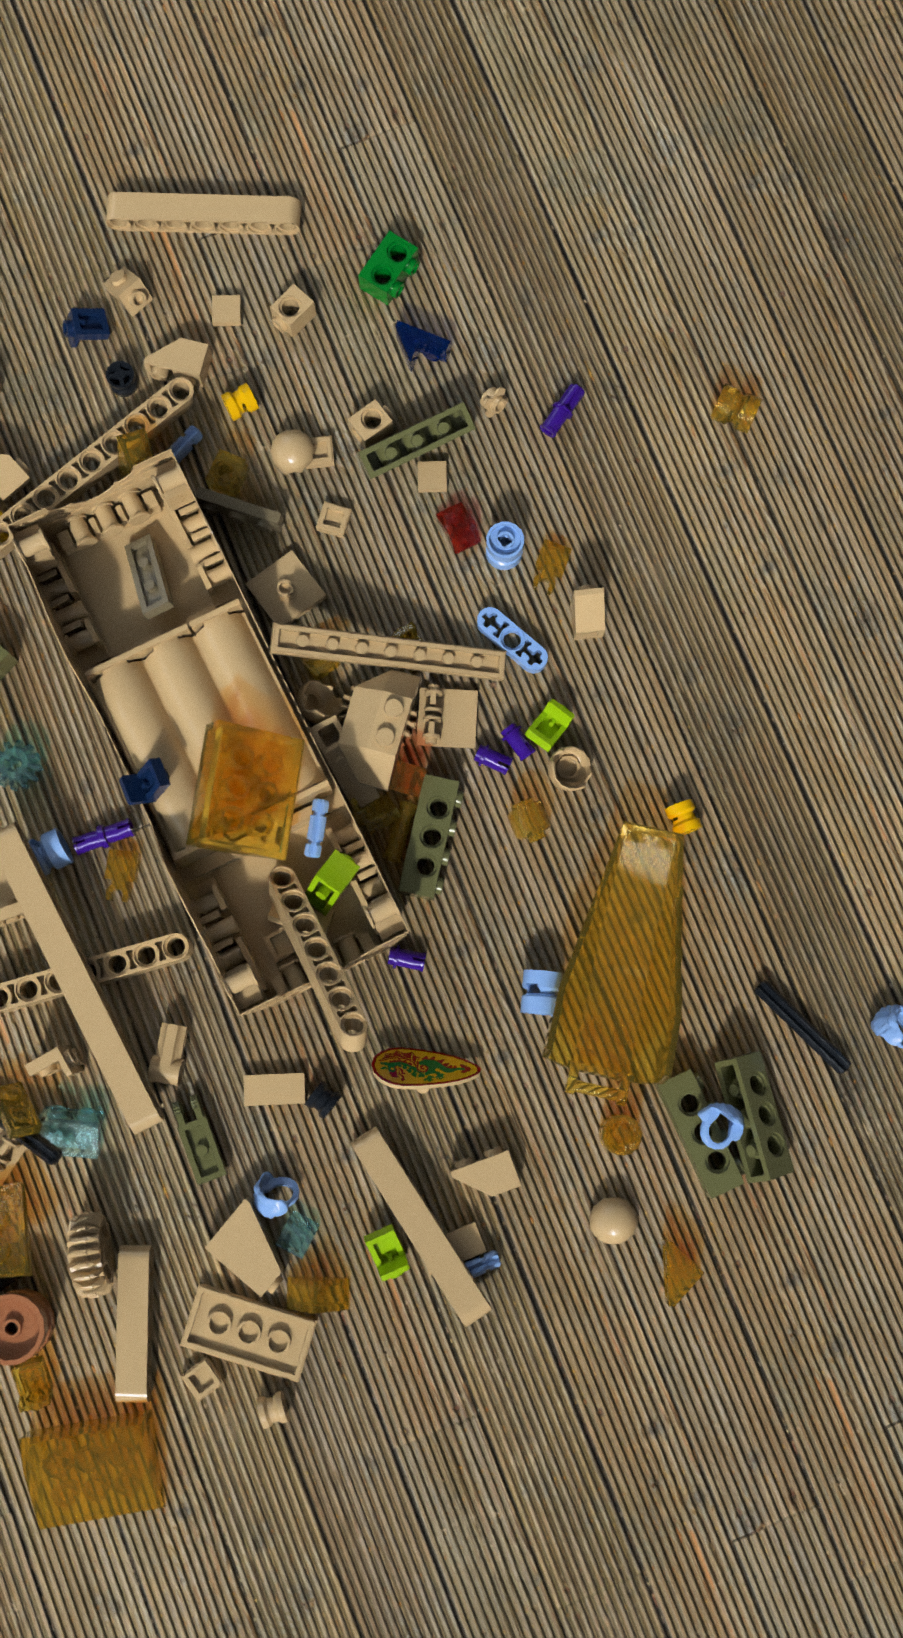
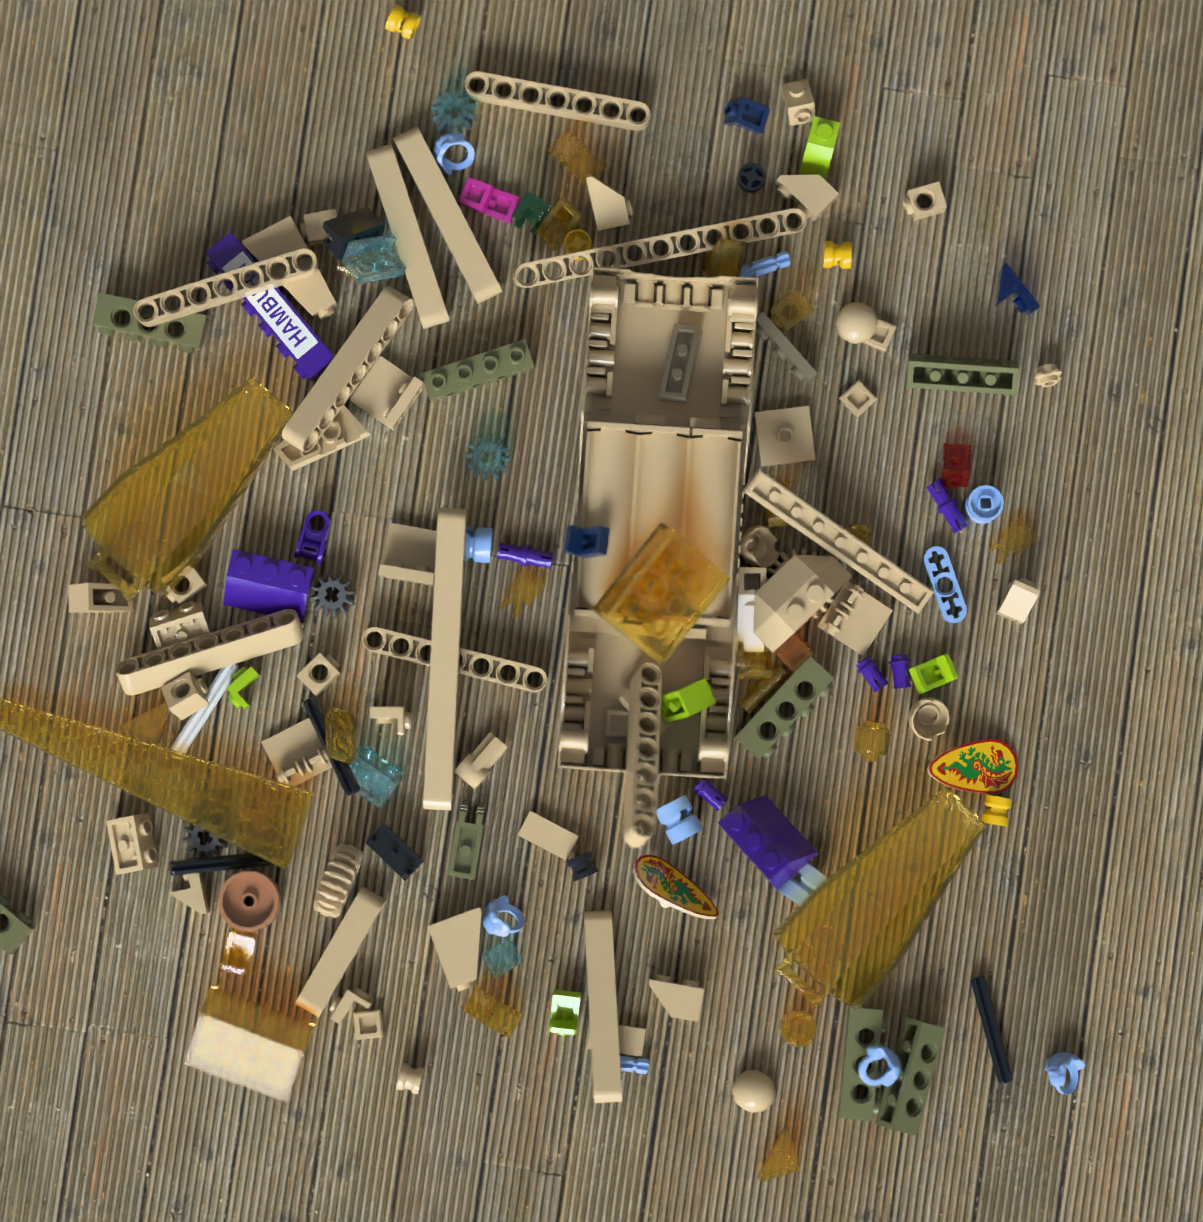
camera: 30 degrees right, 5 degrees up
(134, 1191) = (394, 851): none -> black hinge
(166, 1375) = (342, 1005): none -> tan bracket
(167, 312) = (819, 147): none -> lime slope
(203, 213) = (899, 71): tan beam -> none
(226, 310) = (871, 166): tan tile -> none
(249, 1332) = (423, 1010): tan tile -> none
(316, 828) = (699, 651): light blue axle -> none
(366, 435) = (923, 342): tan brick -> none
(383, 266) = (1024, 205): green brick -> none
(390, 1000) = (679, 820): none -> light blue wheel
(432, 476) = (959, 409): tan tile -> none
(471, 567) = (947, 505): none -> dark purple pin
(486, 969) = (768, 839): none -> dark purple slope
(562, 410) = (1100, 415): dark purple axle -> none
(641, 788) = (976, 767): none -> shield

